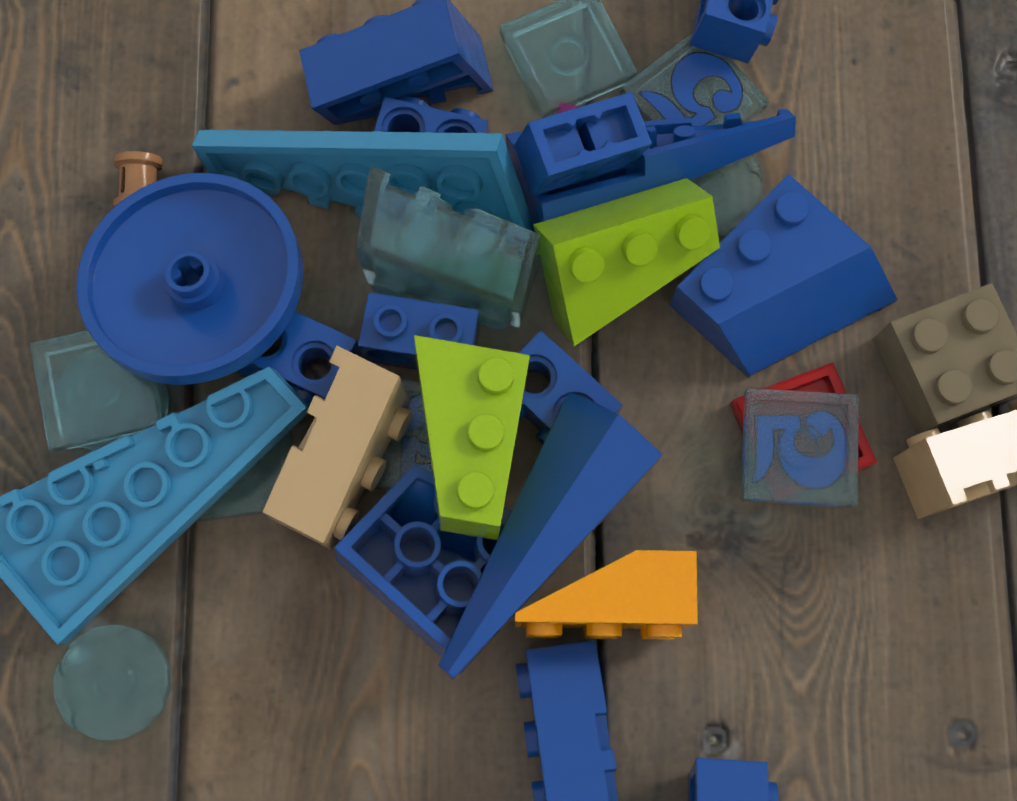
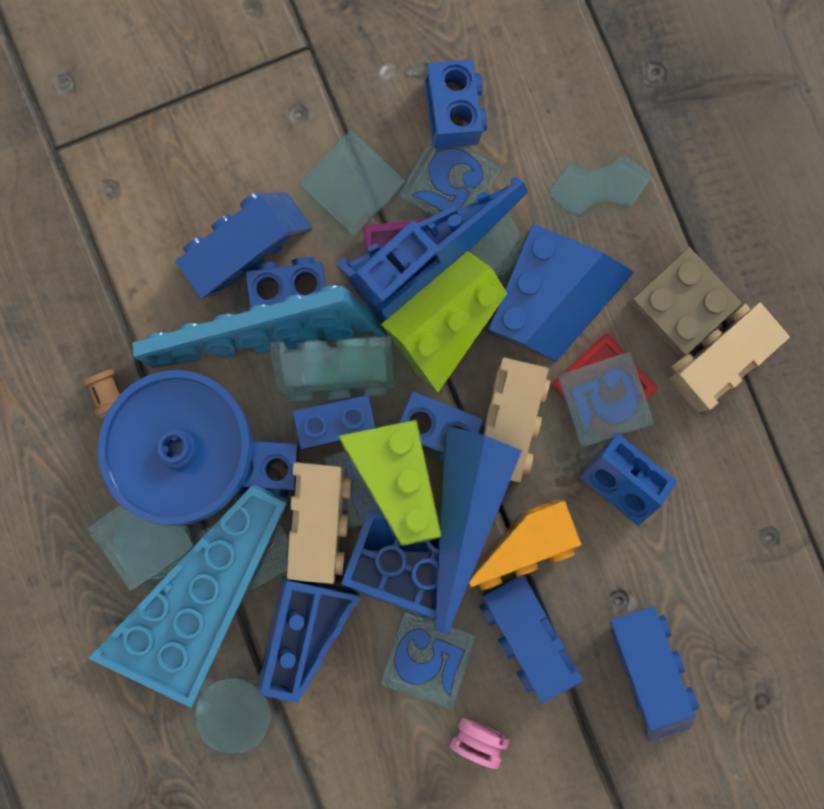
camera: 25 degrees left, 10 degrees up
(249, 603) = (300, 634): none -> blue wedge
(413, 714) = (428, 661): none -> tile
(673, 403) = (515, 407): none -> tan wedge
(794, 568) = (628, 479): none -> blue brick
(912, 178) = (617, 183): none -> clear light blue tile

